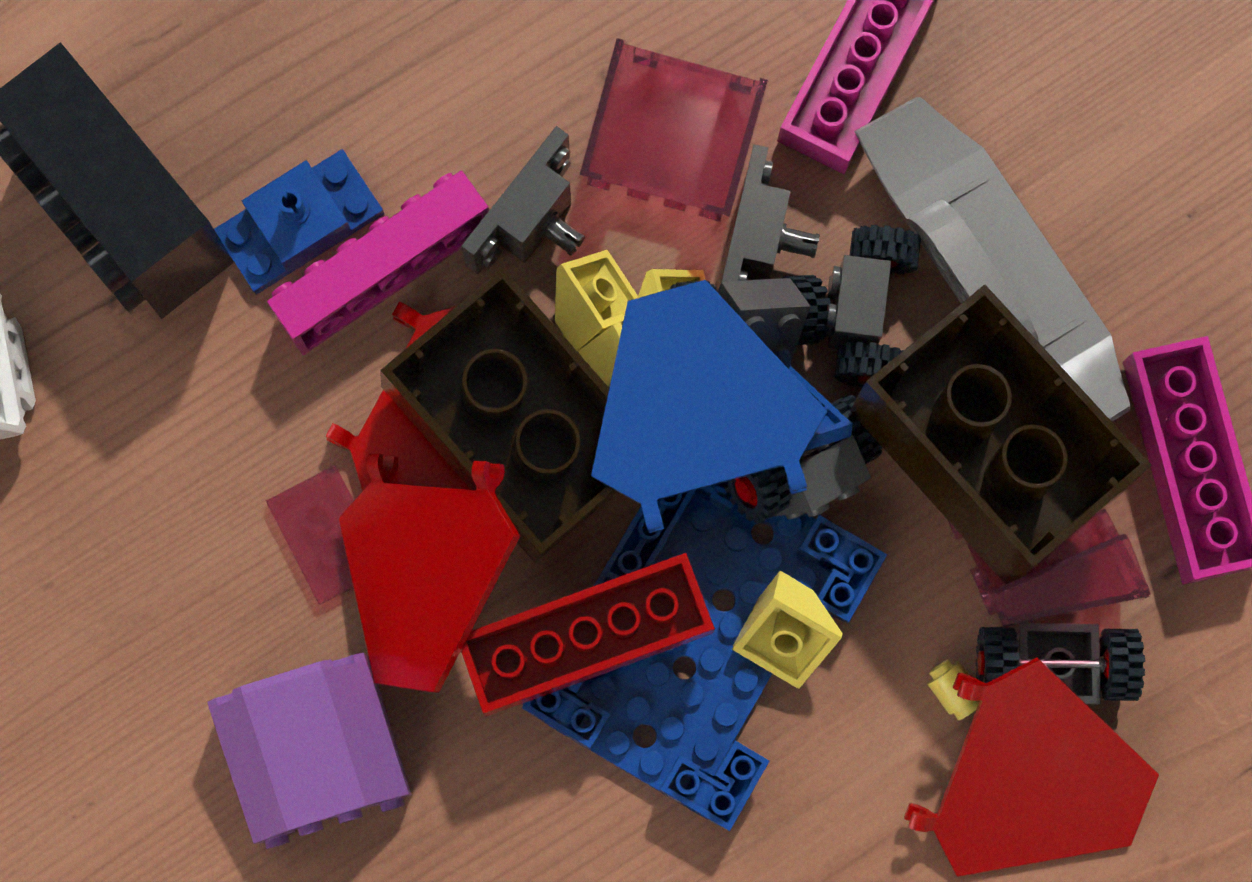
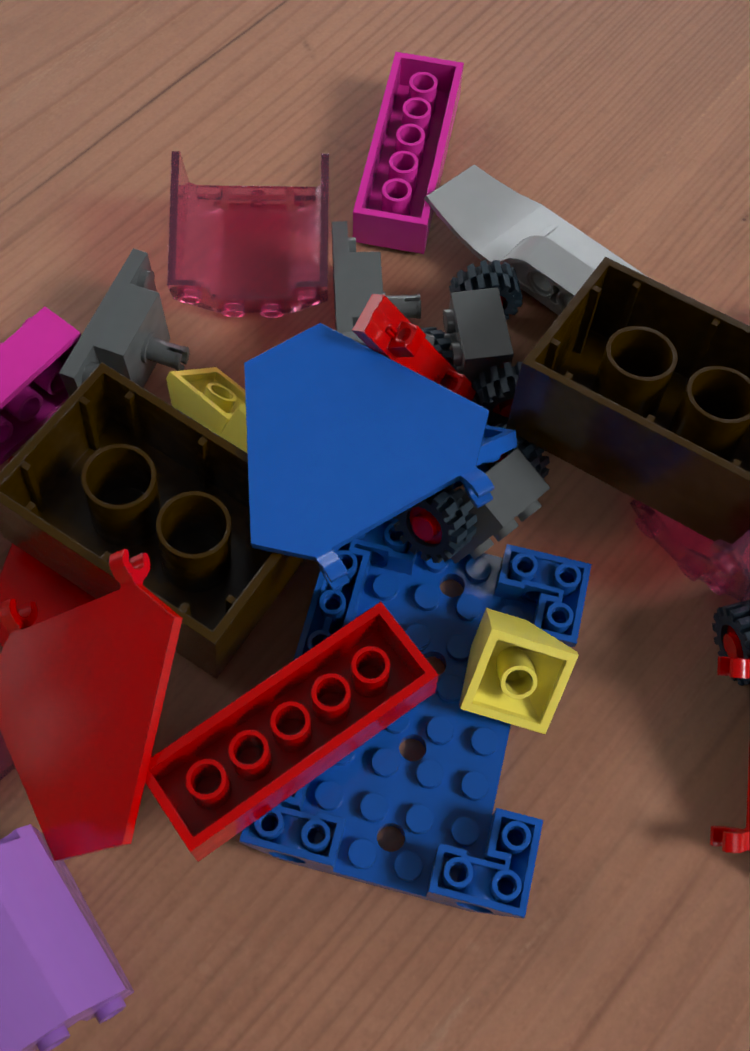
camera: 15 degrees left, 15 degrees down
(783, 330) = (394, 336): none -> red hinge
(942, 686) = (707, 691): light yellow brick -> none

